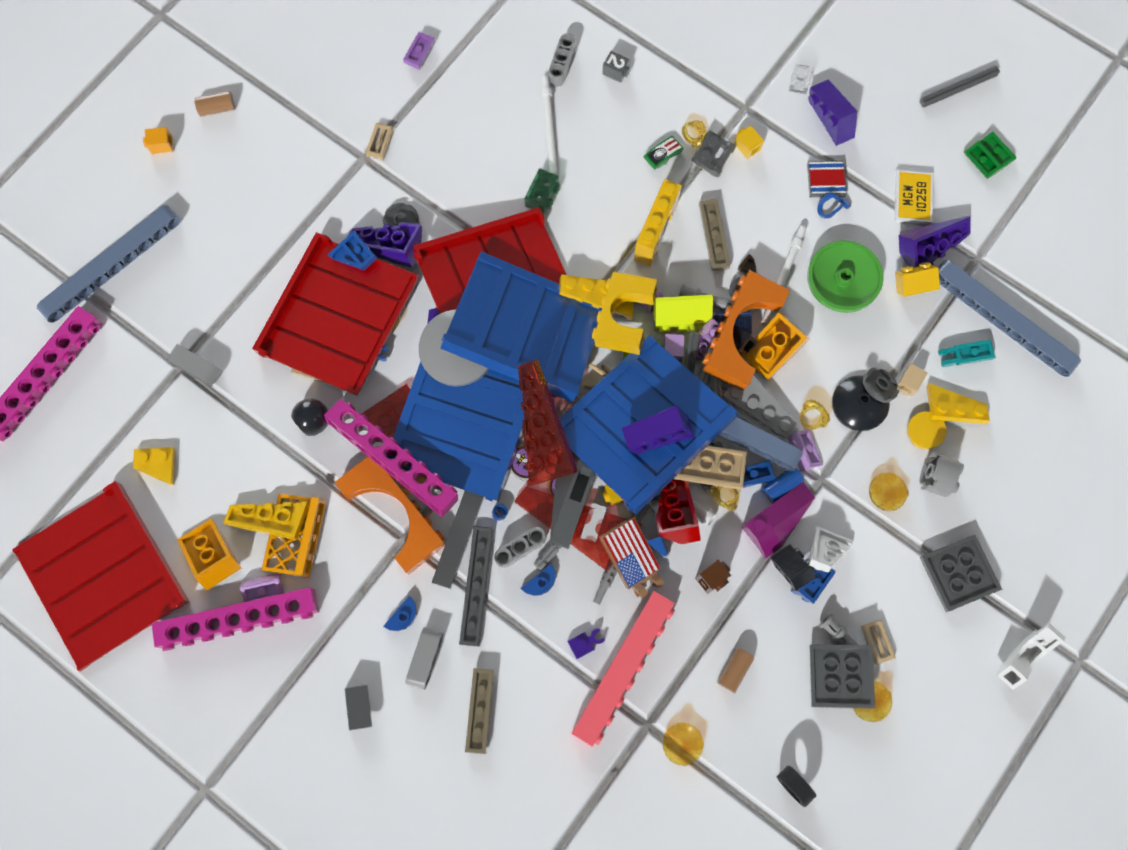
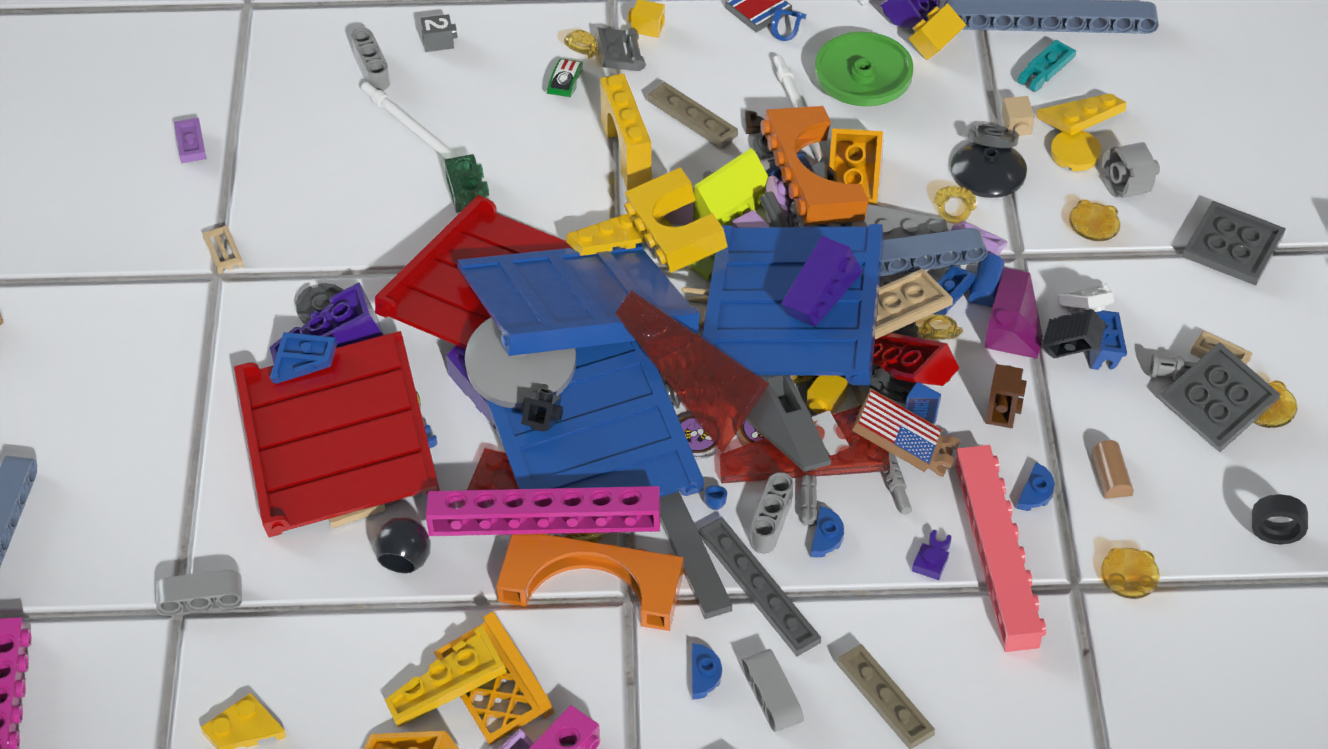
camera: 40 degrees left, 25 degrees down
(436, 393) = (535, 415): none -> black brick
(683, 647) = (1038, 489): none -> blue plate

